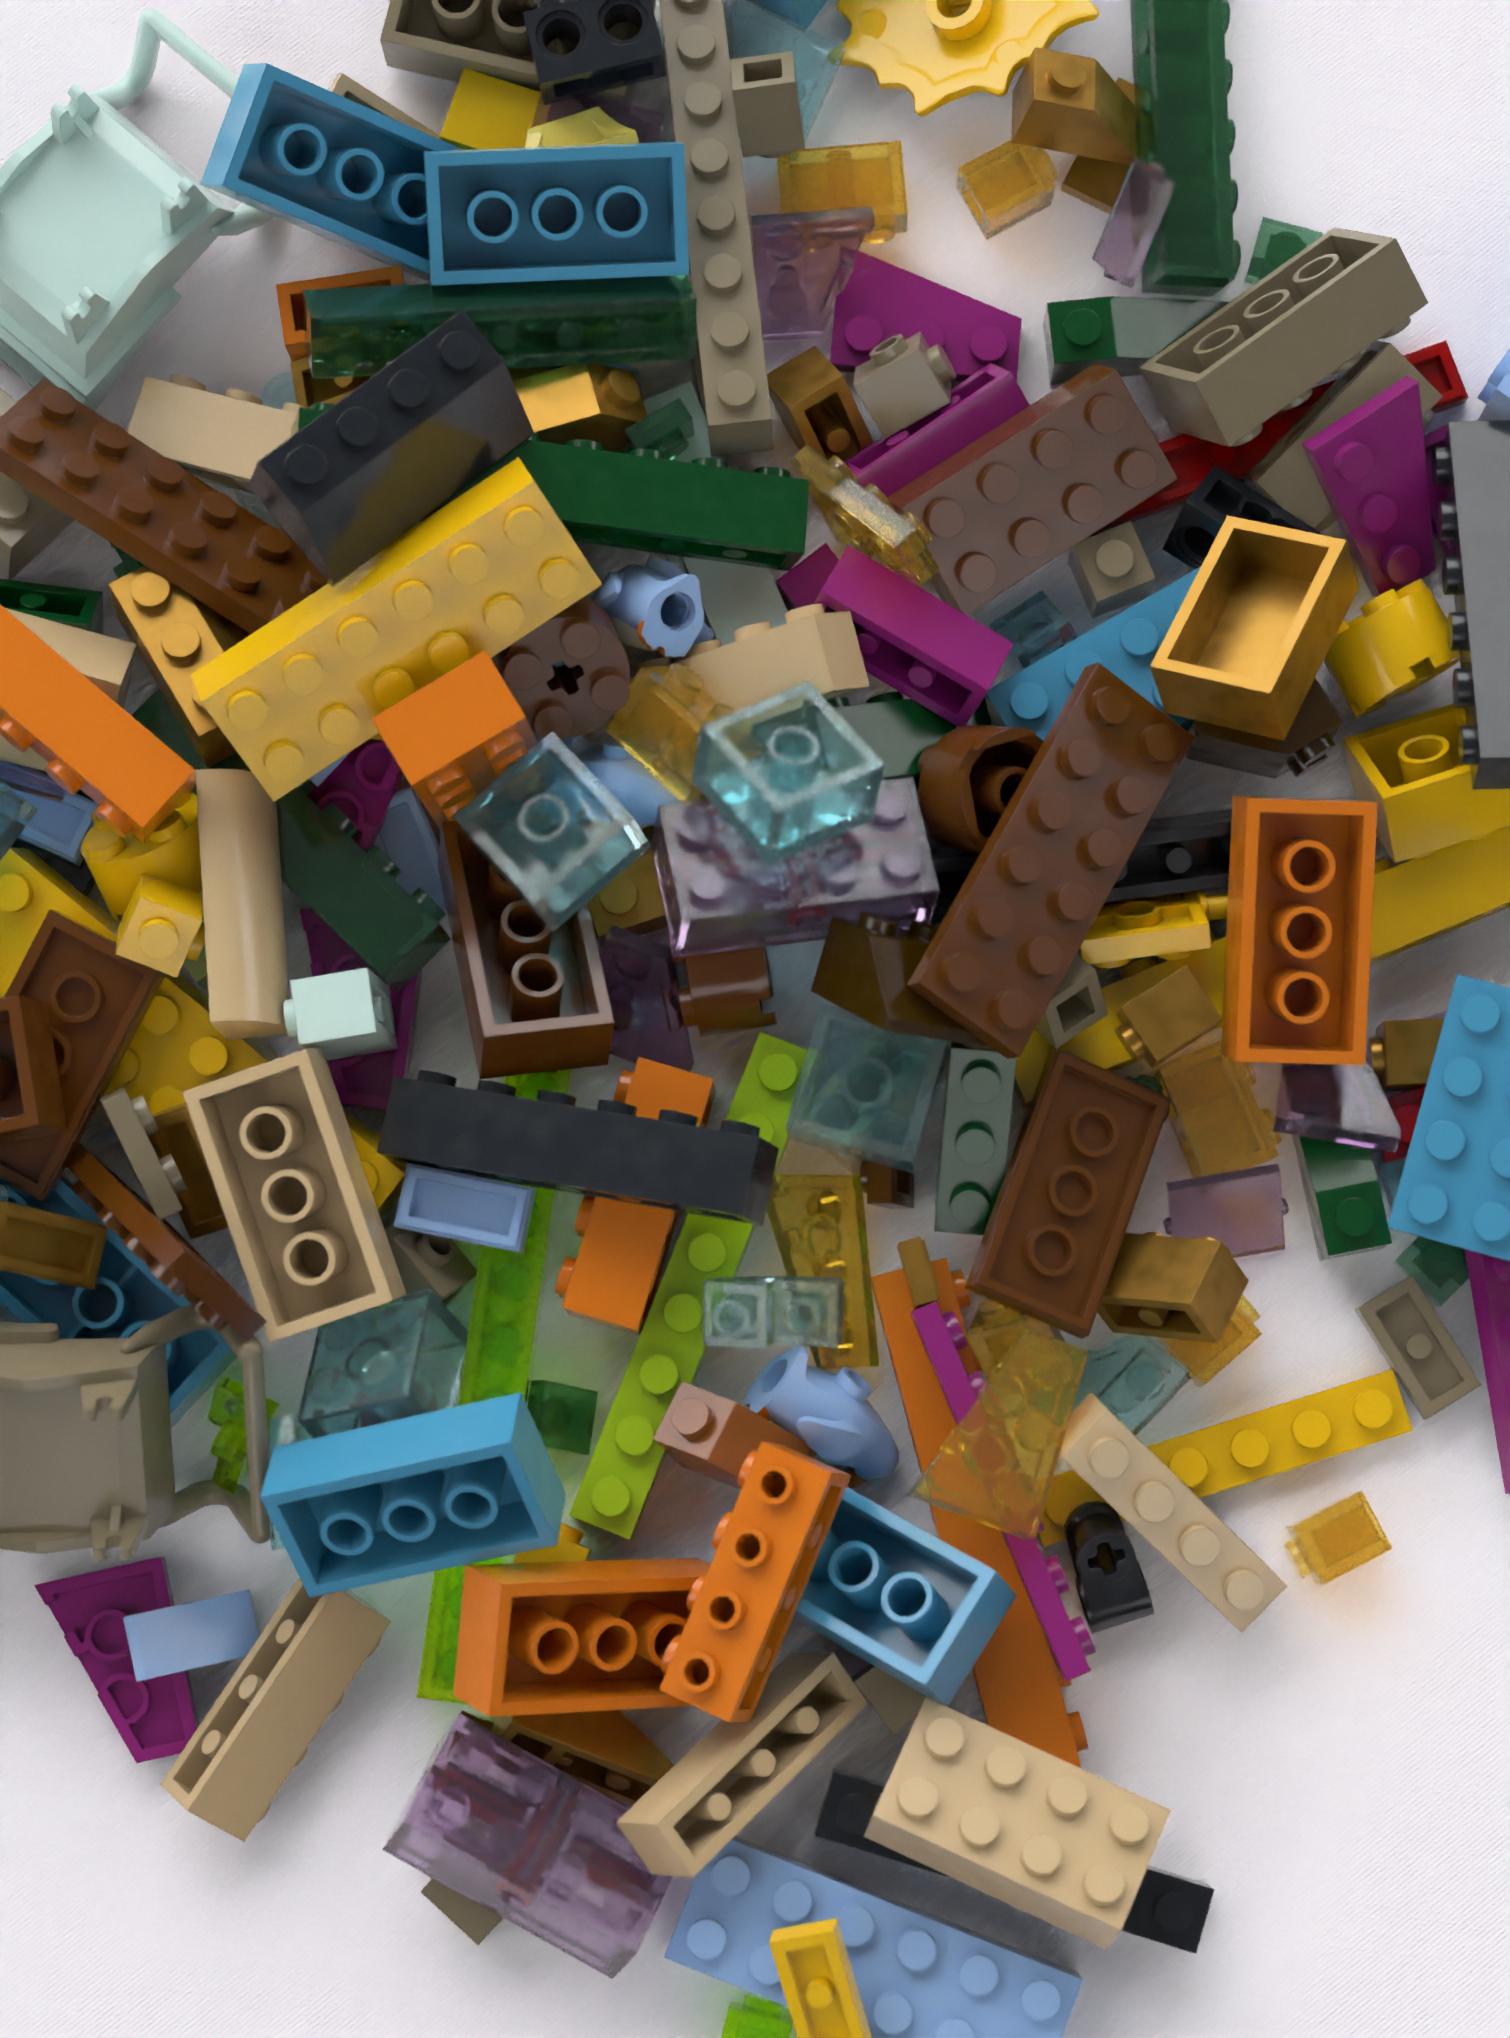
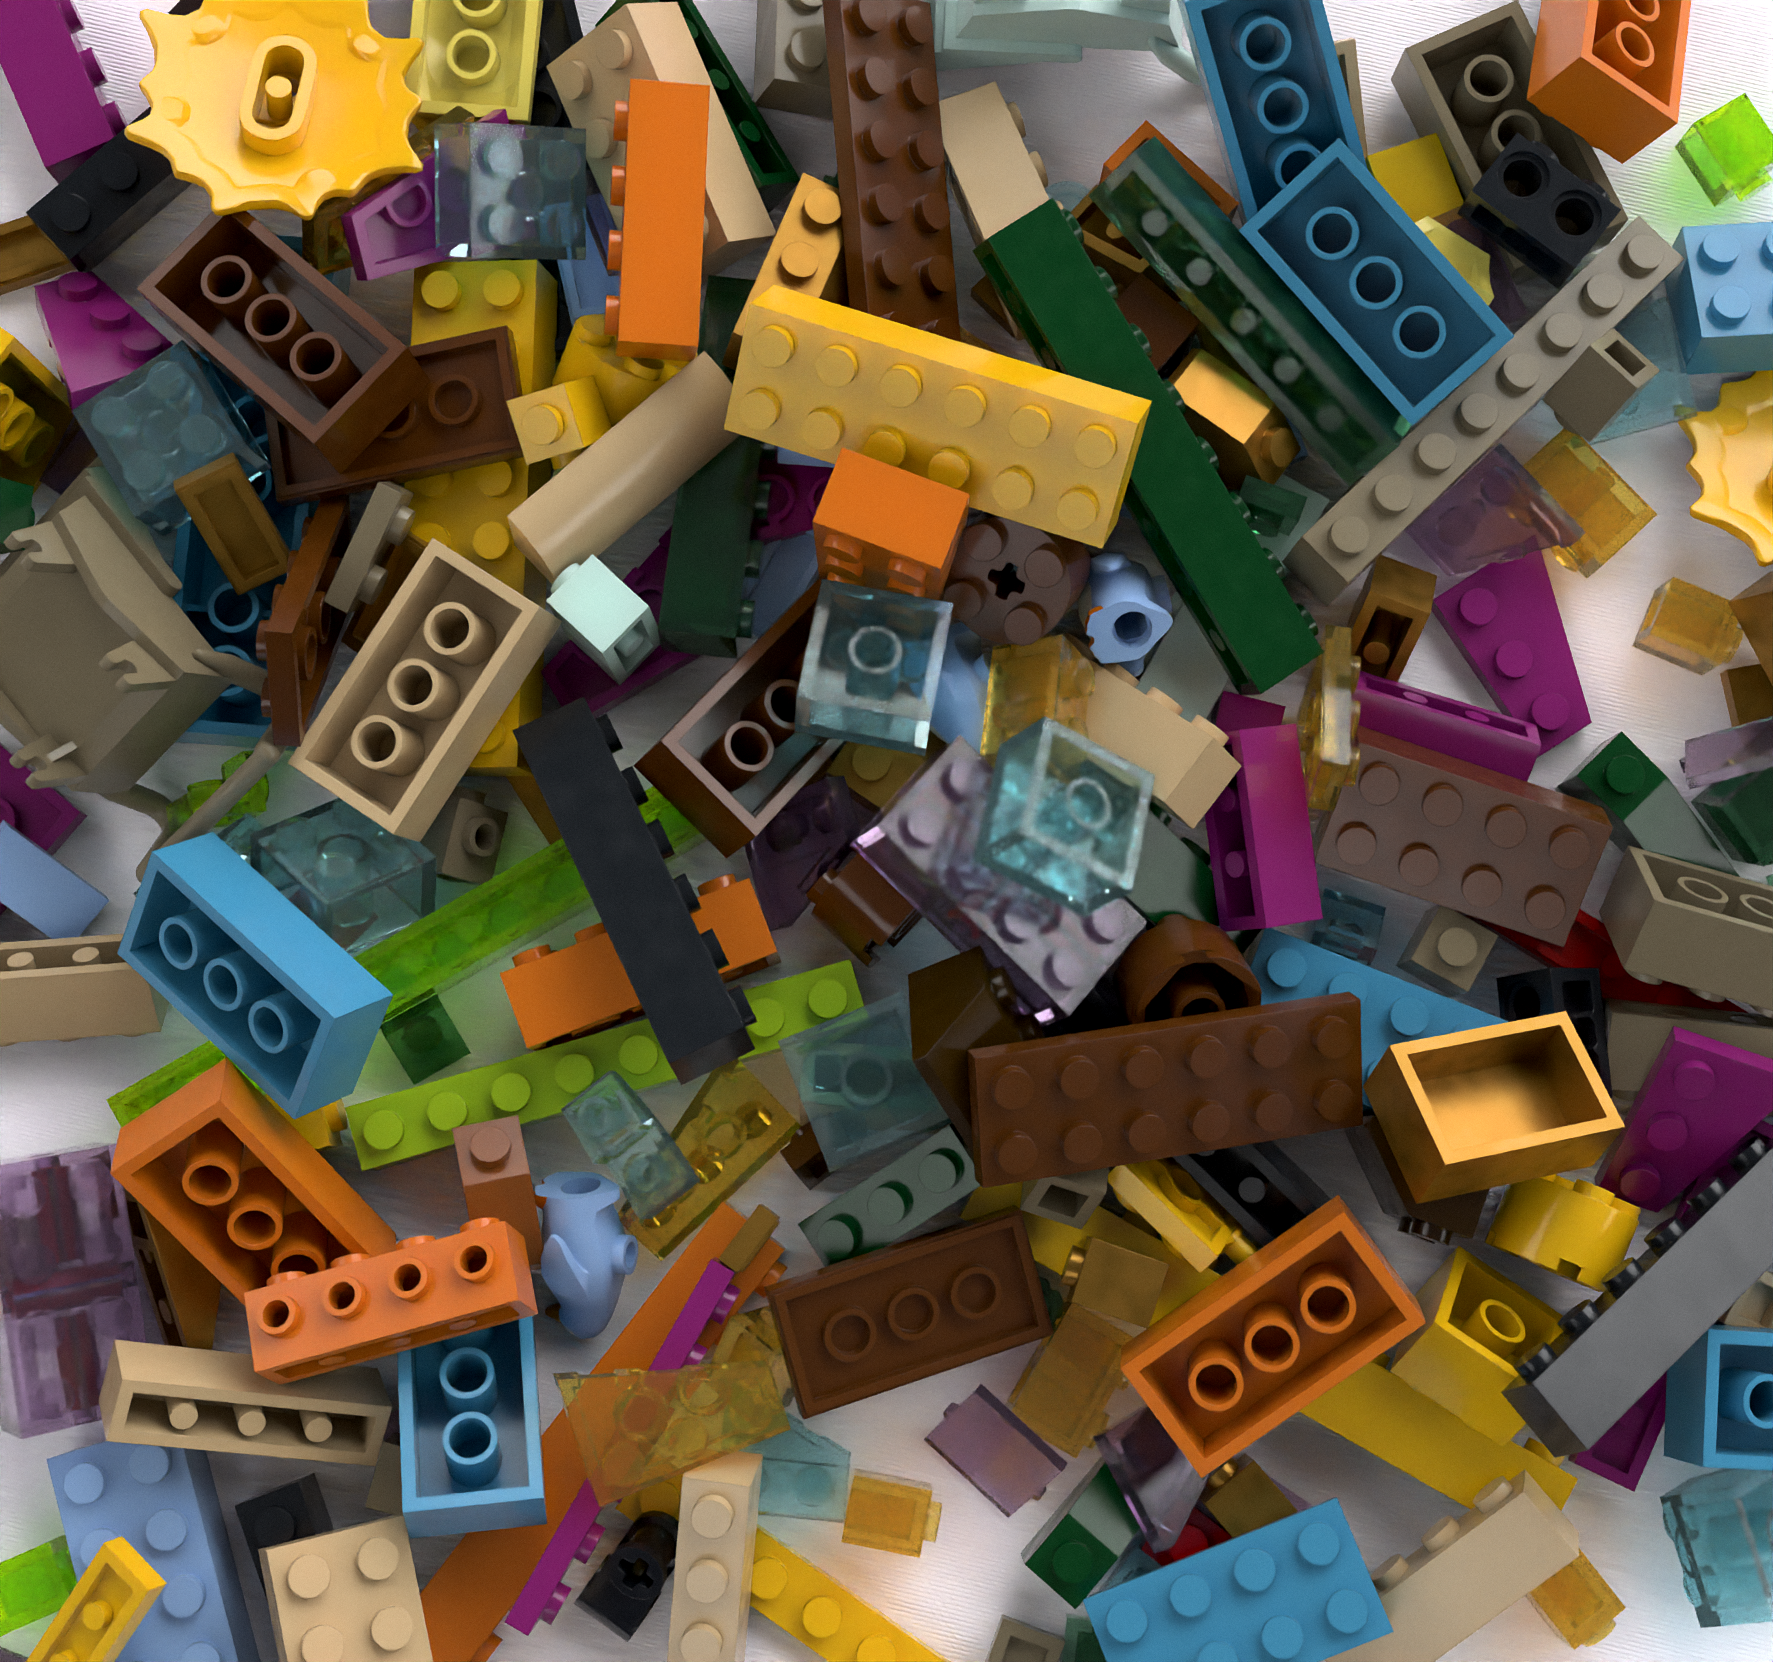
camera: 45 degrees right, 0 degrees up
(393, 449) = (1077, 295): black slope -> none
(465, 1208) = (524, 835): light blue tile -> none
(904, 382) = (1464, 668): dark tan brick -> none
(1172, 1288) = (900, 1456): pearl gold brick -> none

